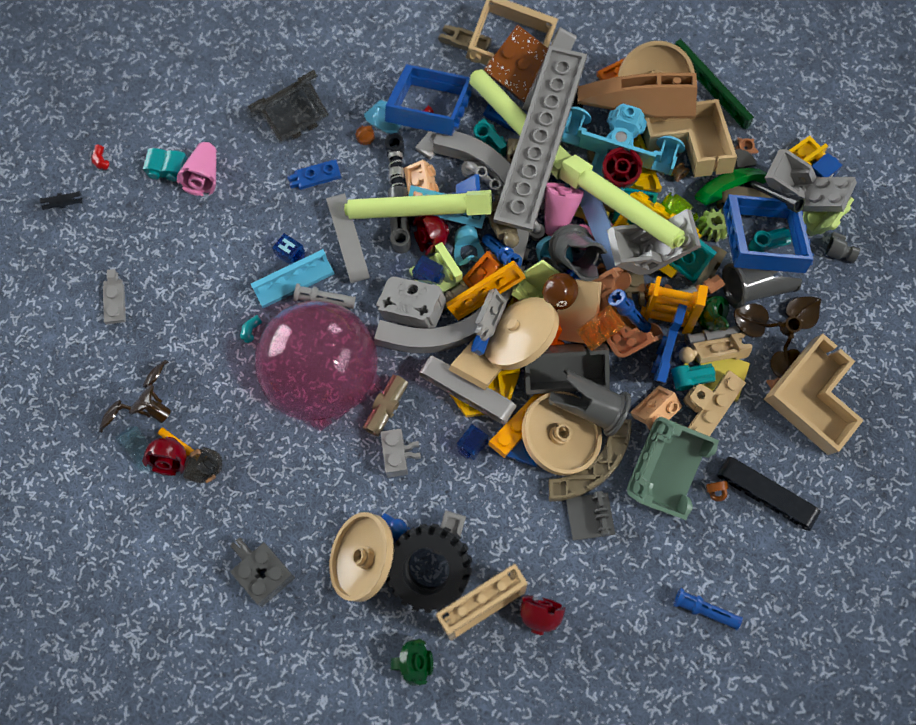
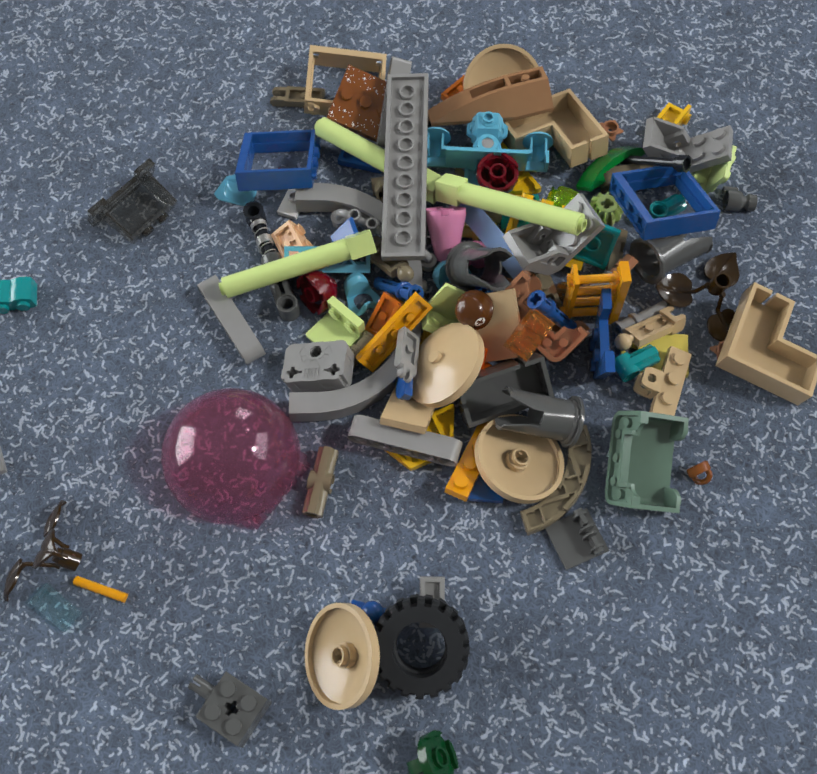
camera: 15 degrees left, 5 degrees down
(165, 456) = (88, 607): dark red cylinder -> none
(199, 171) = (51, 292): bright pink cone -> none
(203, 465) = (133, 605): clear smoke hair -> none
(247, 328) = (146, 441): teal arm -> none
(283, 282) = (182, 377): medium azure fence -> none
(288, 249) = (170, 348): clear blue brick -> none
(314, 292) = (250, 384): light grey pin -> none
(315, 175) = (178, 265): blue hinge -> none
(365, 135) = (220, 212): dark orange tile -> none
(395, 452) = (346, 529): light grey brick -> none
(428, 271) = (327, 329): clear blue brick -> none
(472, 442) = (426, 495): clear blue brick -> none
(482, 602) = (493, 666): tan window -> none
(491, 137) = (348, 178): teal plate -> none
(541, 614) = (559, 661): dark red cylinder -> none
(657, 404) = (607, 401): light nougat bracket -> none
(680, 172) = (554, 167): medium nougat bush -> none
(697, 605) = (721, 602): blue pin -> none
(715, 314) = (639, 295): dark green piece -> none
(718, 89) = (564, 81): dark green tile -> none
(744, 159) = (615, 140): dark grey tile -> none
(769, 492) = (755, 460): black beam -> none
(827, 166) = (696, 125): blue brick -> none

